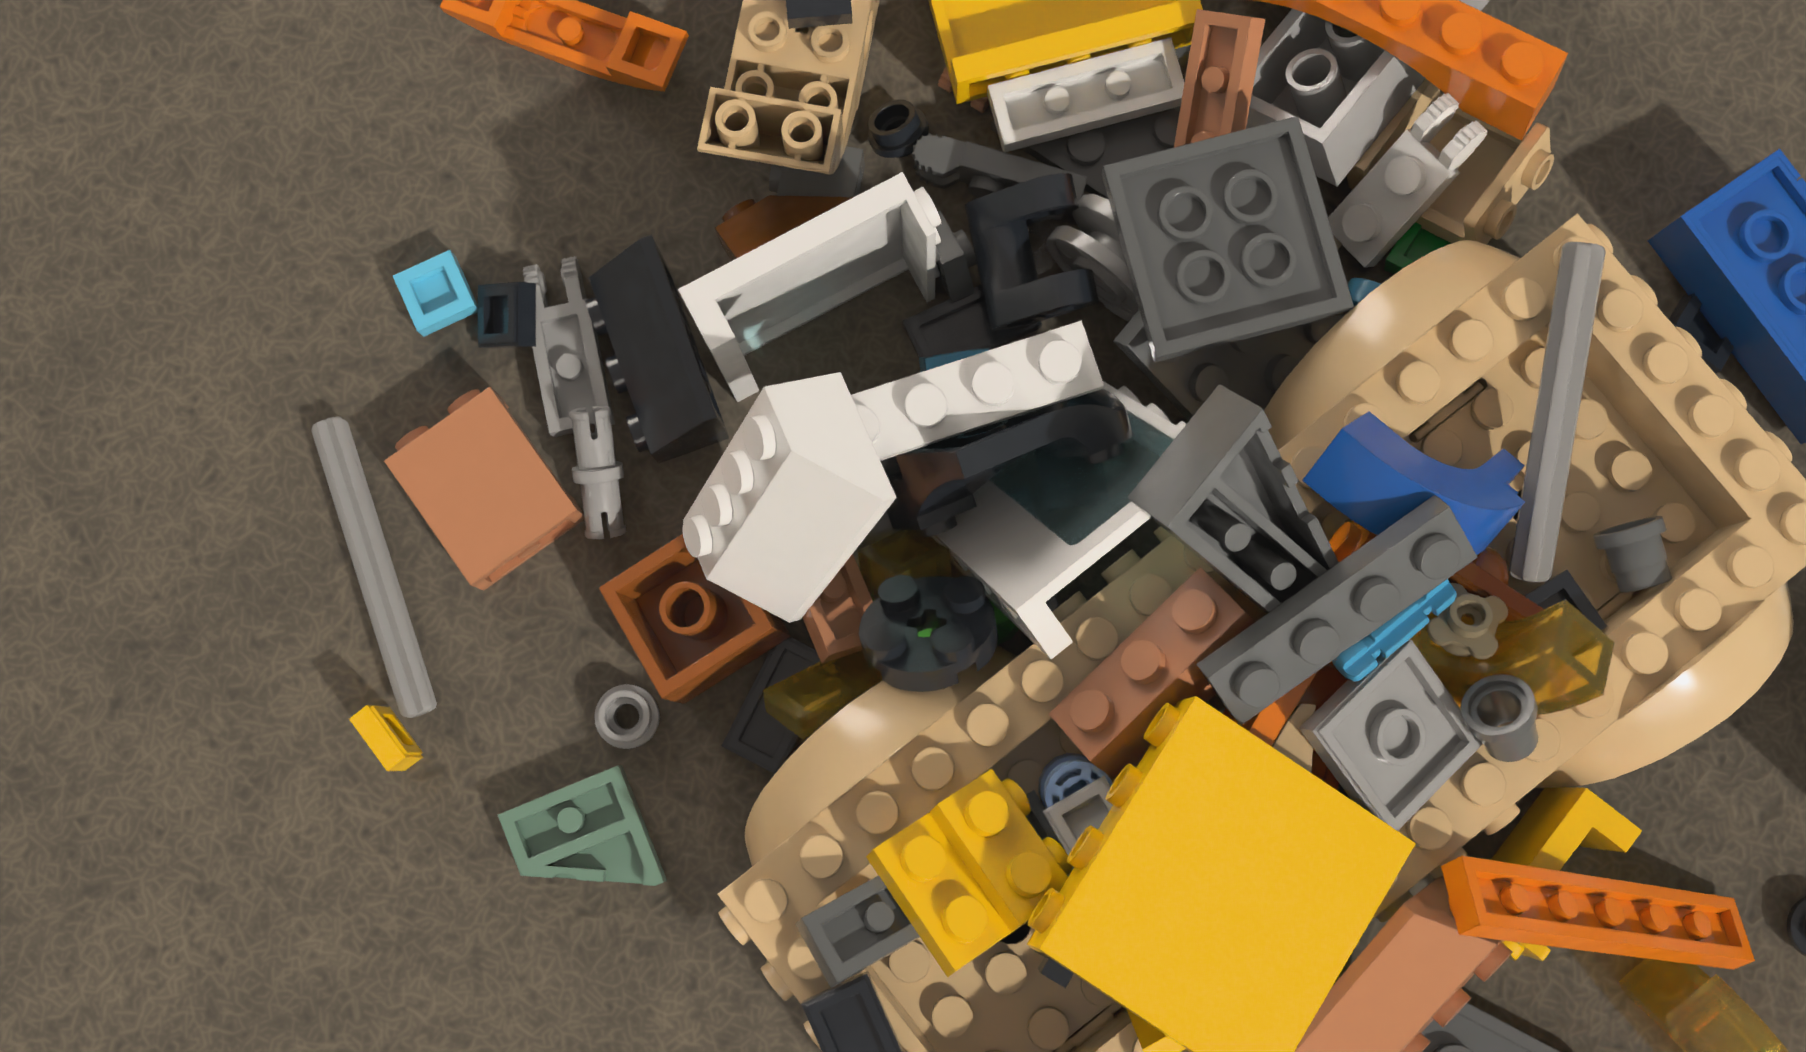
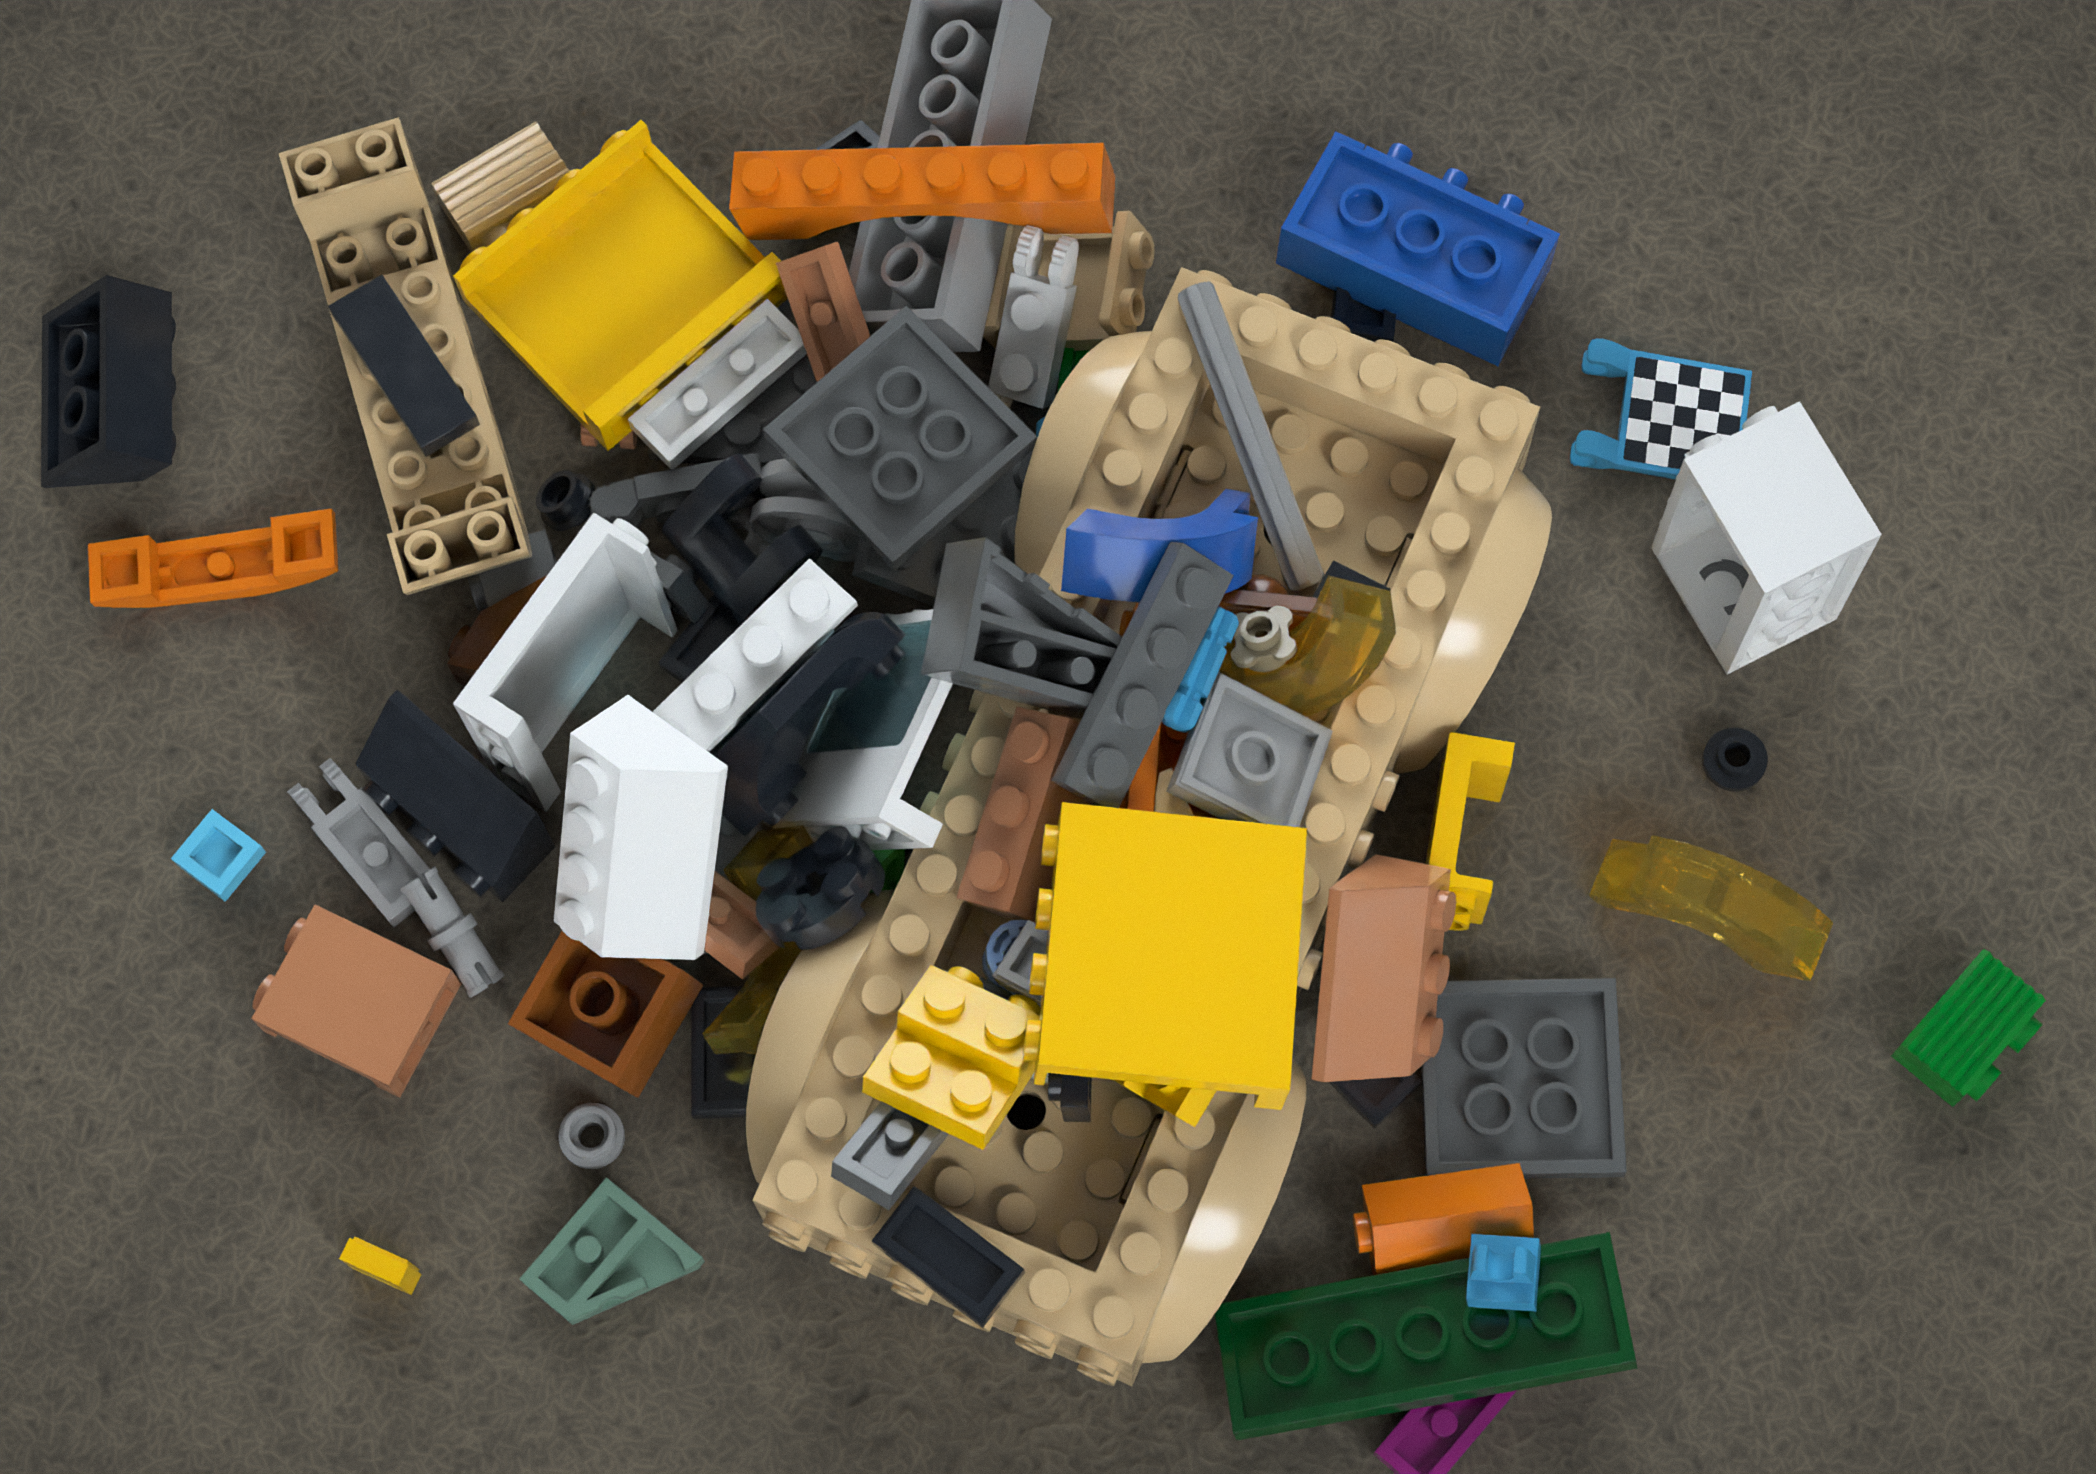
camera: 30 degrees left, 10 degrees down
(374, 567) = (287, 1127): light grey axle -> none
(507, 315) = (295, 840): black tile -> none
(1498, 701) = (1330, 697): dark grey piece -> none
(1594, 914) = (1515, 830): orange plate -> none
(1636, 553) = (1382, 517): dark grey piece -> none

